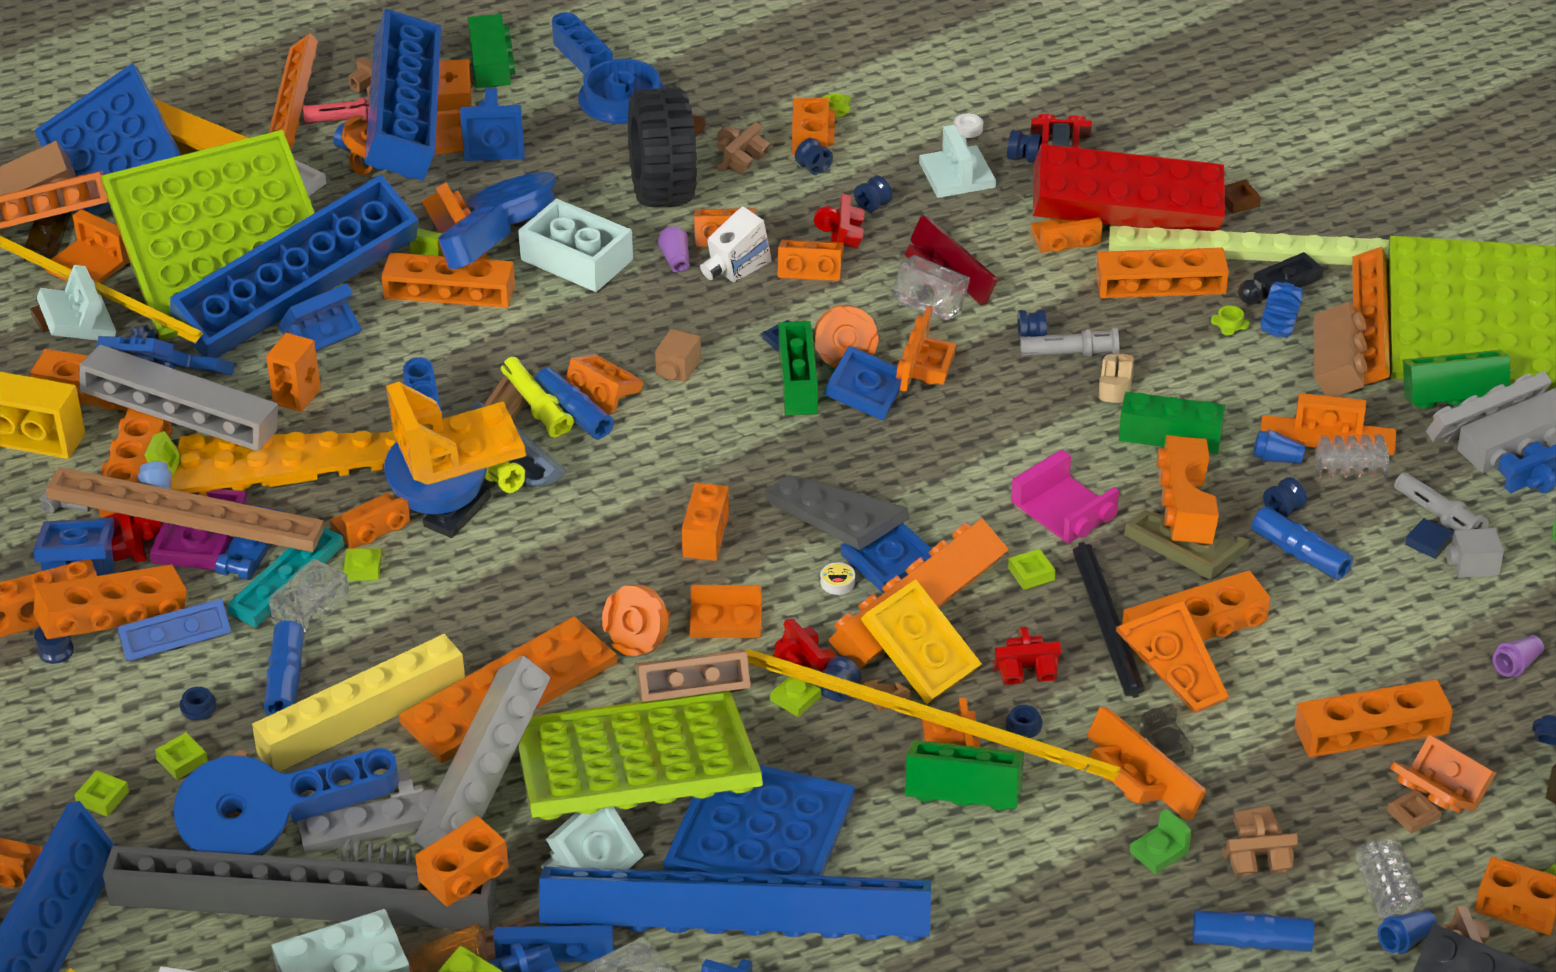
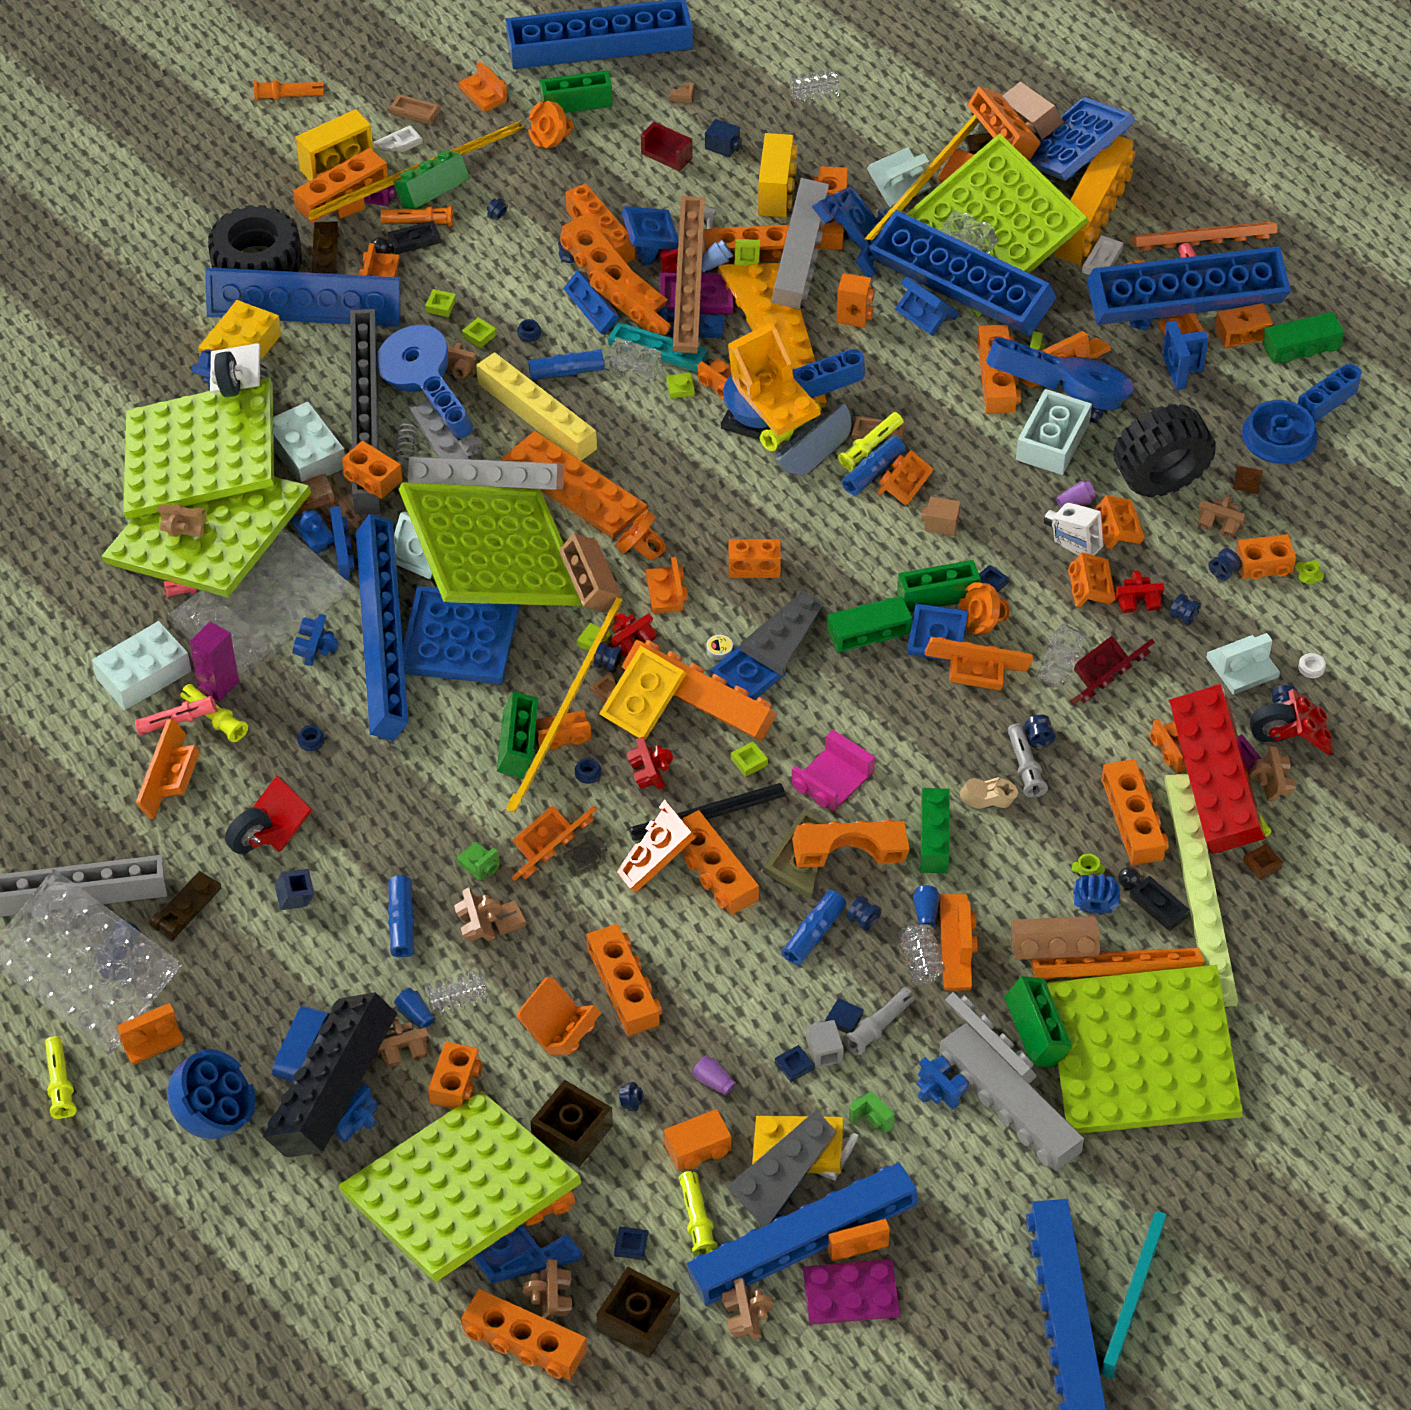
camera: 80 degrees right, 10 degrees up
(203, 575) = (633, 298): none -> orange bracket
(234, 241) = (971, 231): none -> clear brick
(836, 438) = (869, 624): none -> green brick
(1496, 588) = (794, 1063): none -> dark blue tile

